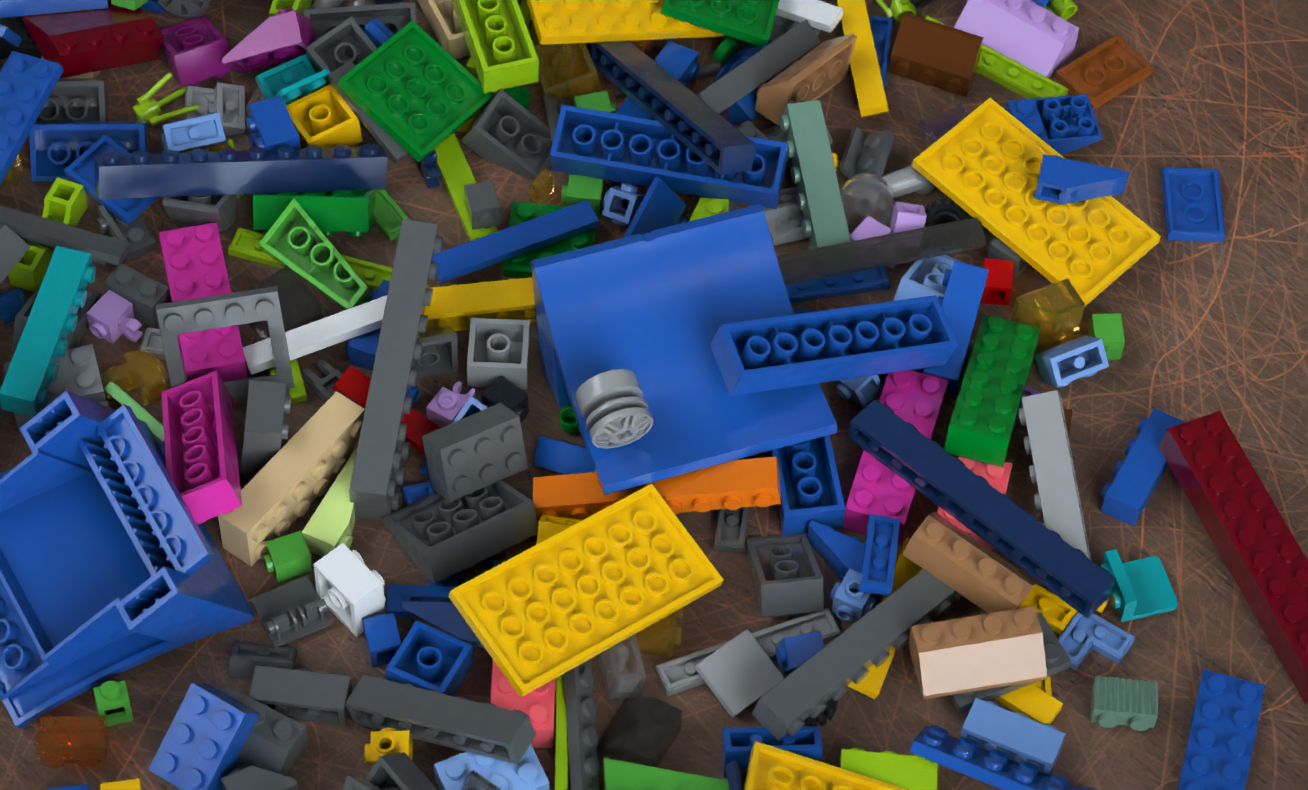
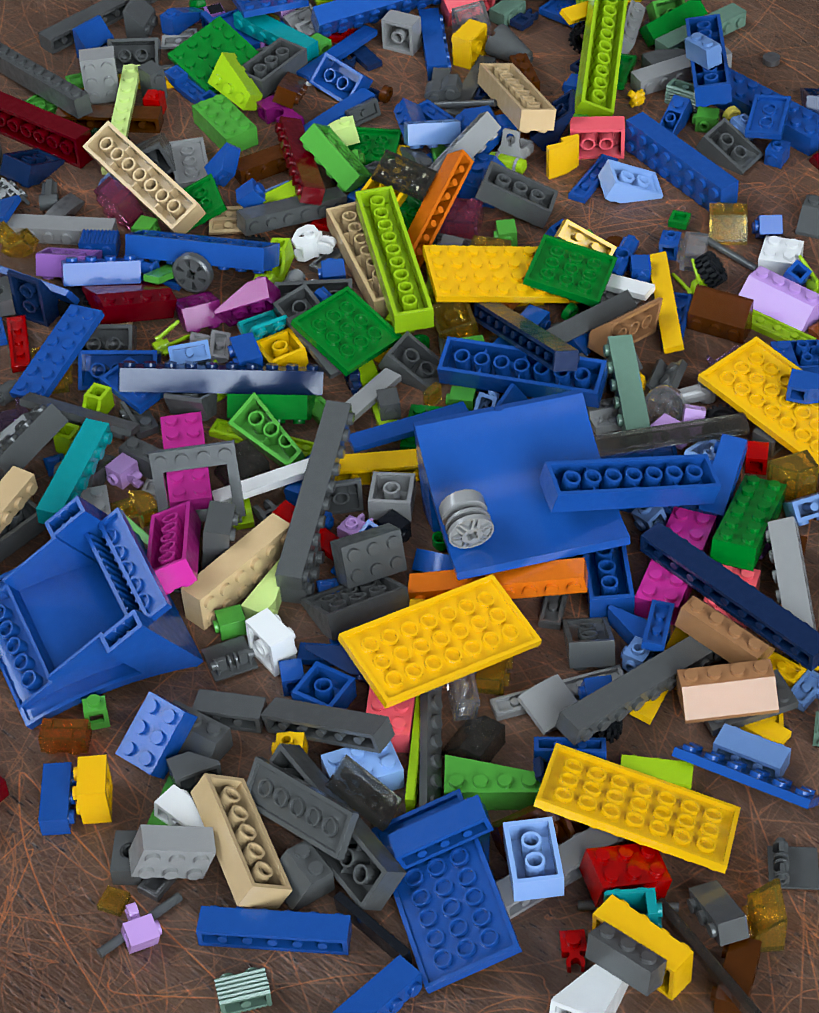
camera: 10 degrees right, 10 degrees down
(246, 656) = (192, 685): dark grey slope -> none
(450, 189) = (367, 396): none -> light grey tile

